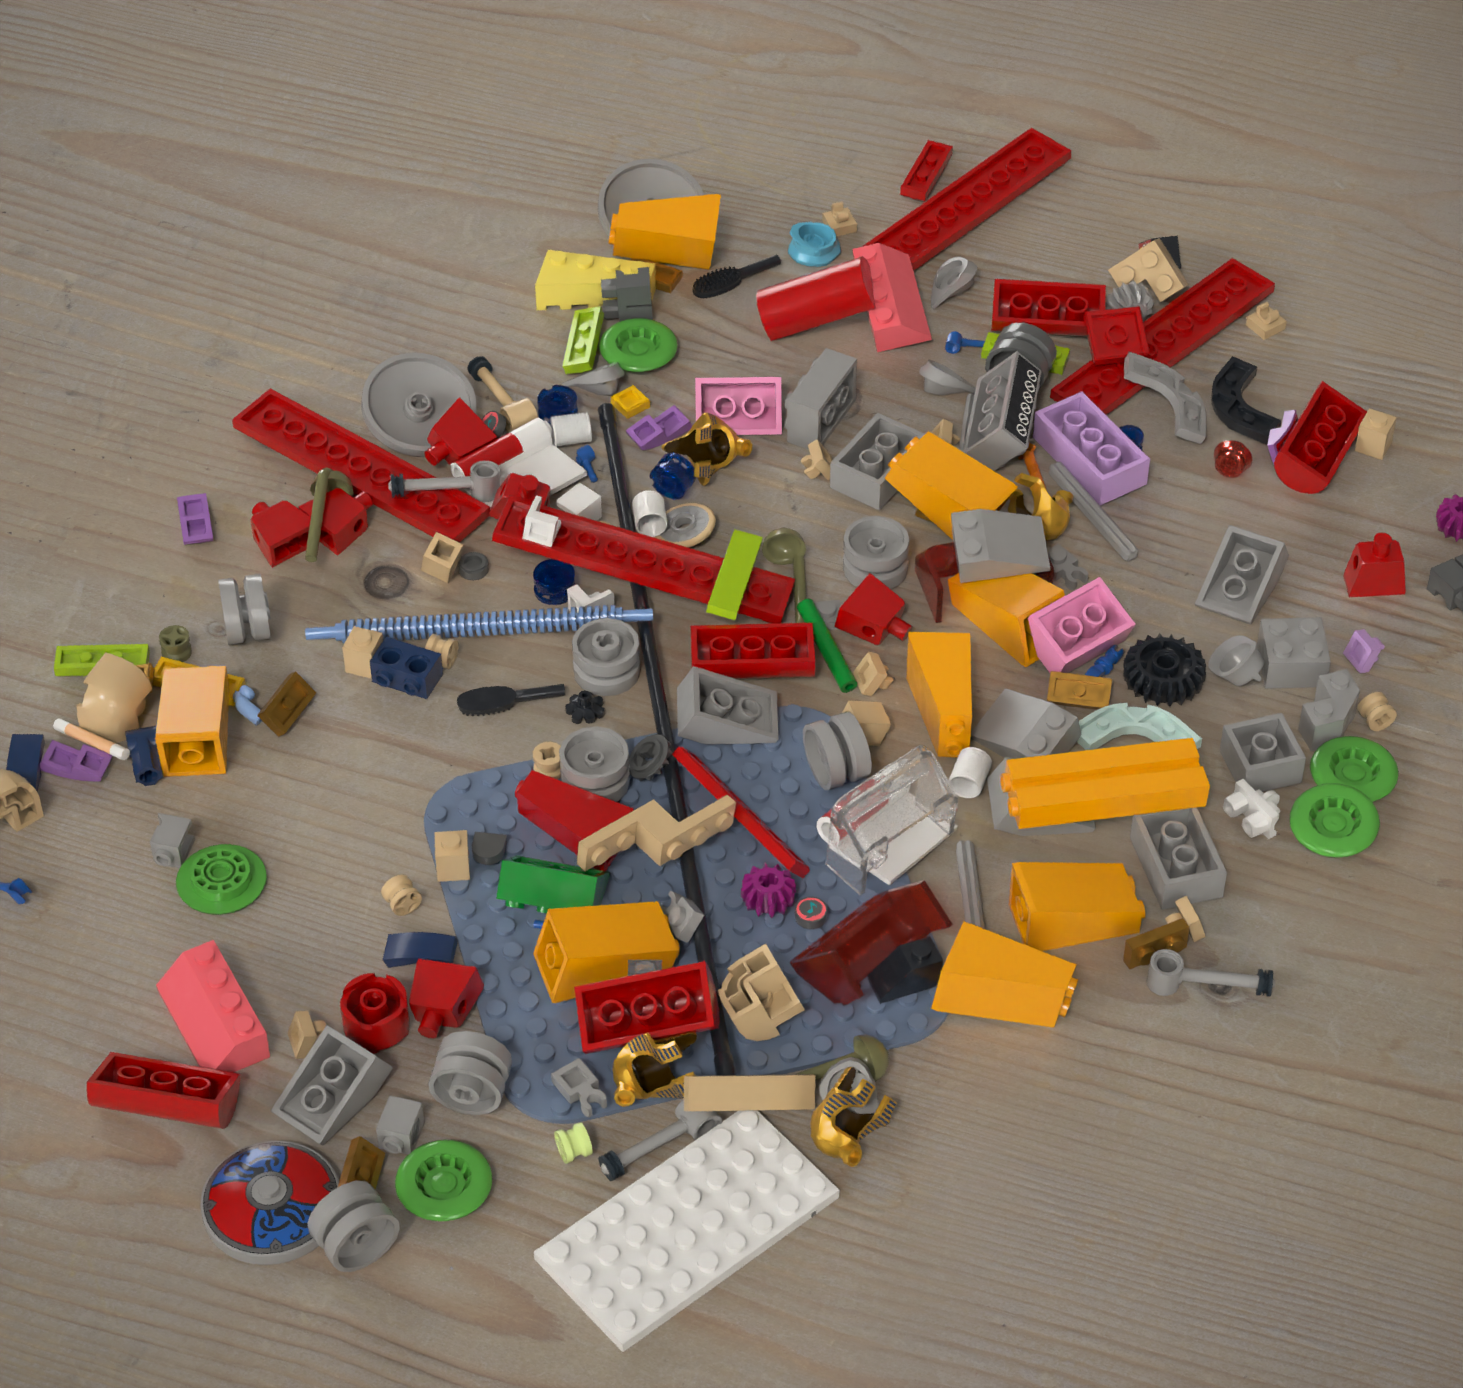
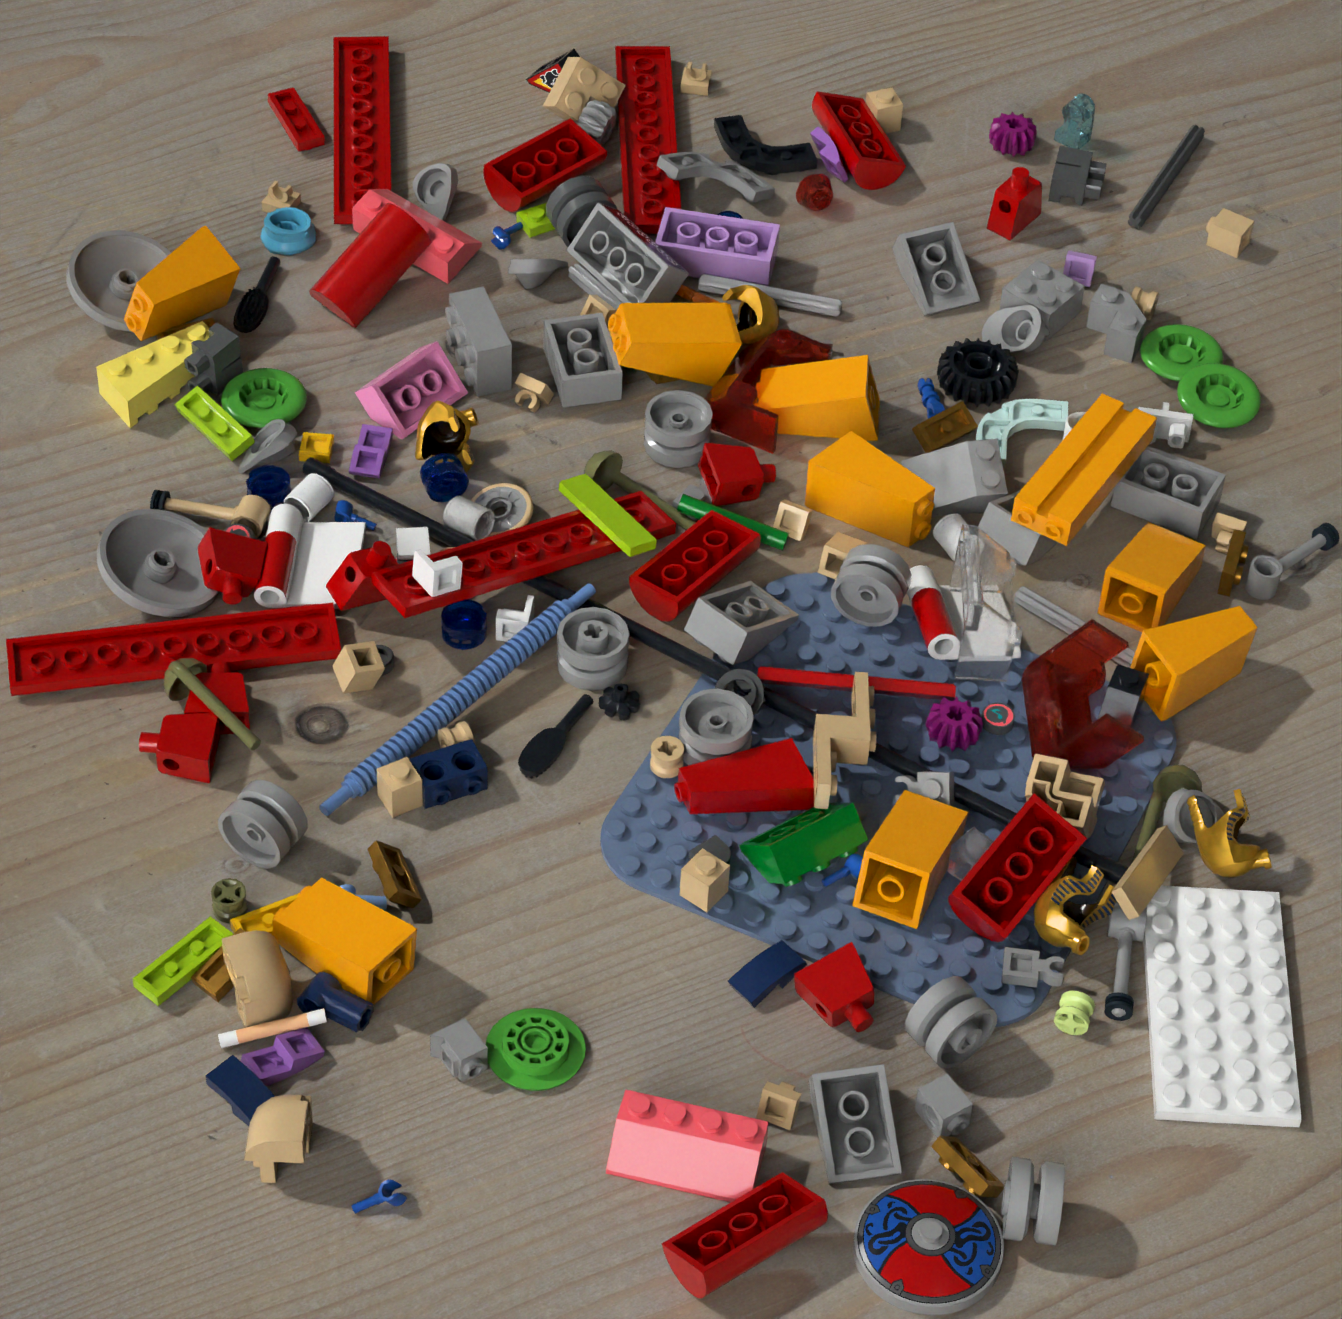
camera: 50 degrees left, 0 degrees up
(195, 518) = (89, 793): medium lavender slope -> none
(375, 1012) = (811, 1039): red brick -> none
(401, 895) = (697, 943): tan wheel -> none
(444, 1191) = (1024, 1127): bright green wheel -> none
(483, 481) = (304, 589): light grey piece -> none
(998, 544) = (778, 356): light grey slope -> none
(1079, 627) = (899, 380): bright pink slope -> none
(1115, 334) = (625, 152): red tile -> none
(1263, 752) = (1123, 376): light grey brick -> none

